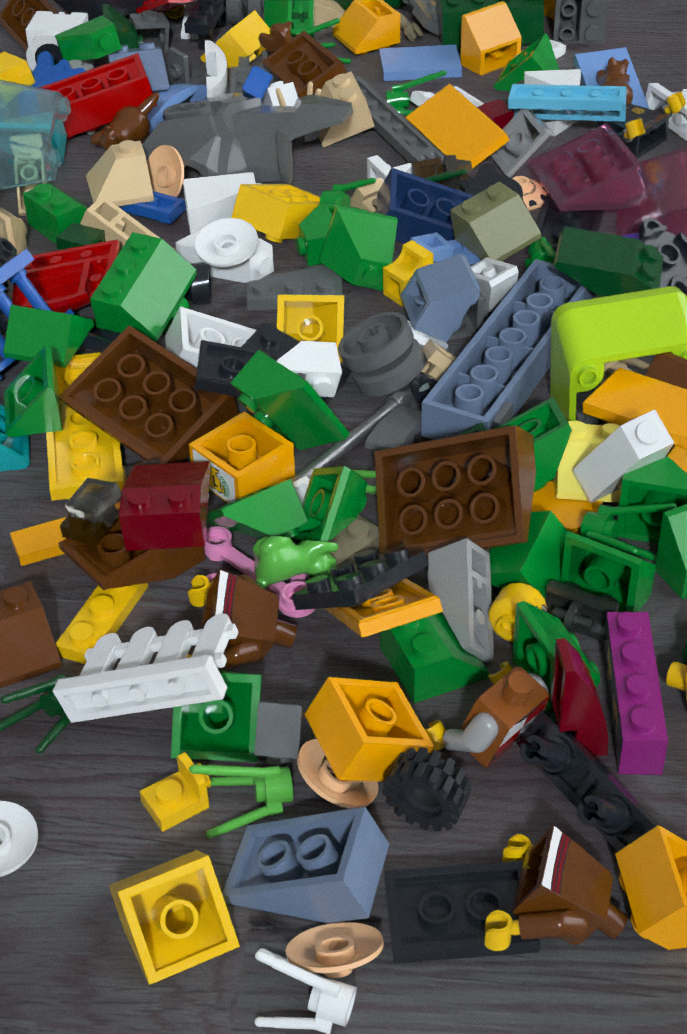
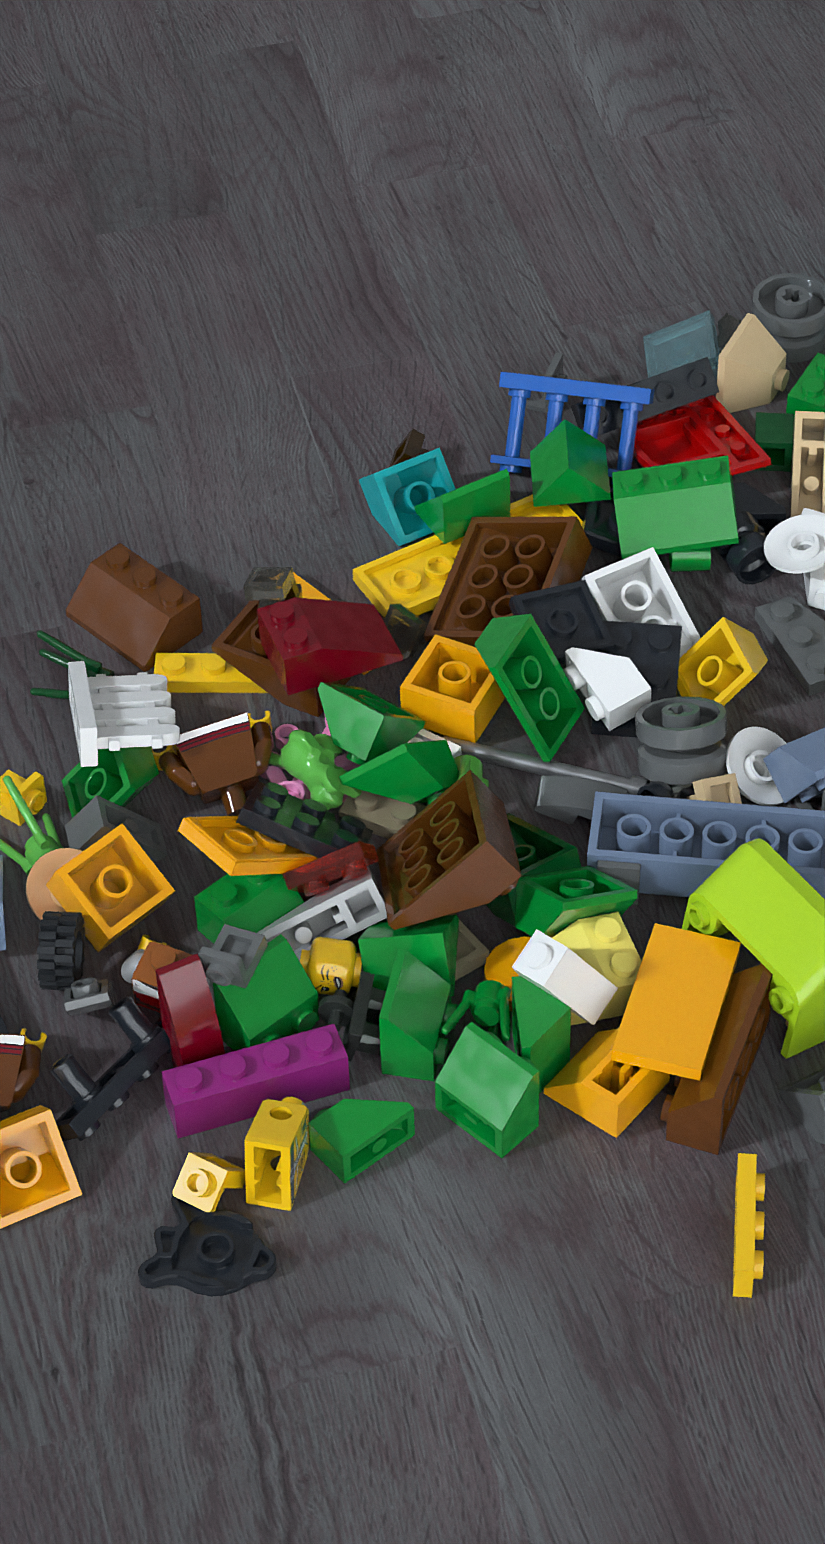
camera: 70 degrees right, 5 degrees up
(434, 558) = (346, 863): none -> clear red plate
(504, 780) = (88, 996): none -> dark grey slope
(546, 622) = (233, 956): none -> dark grey bracket

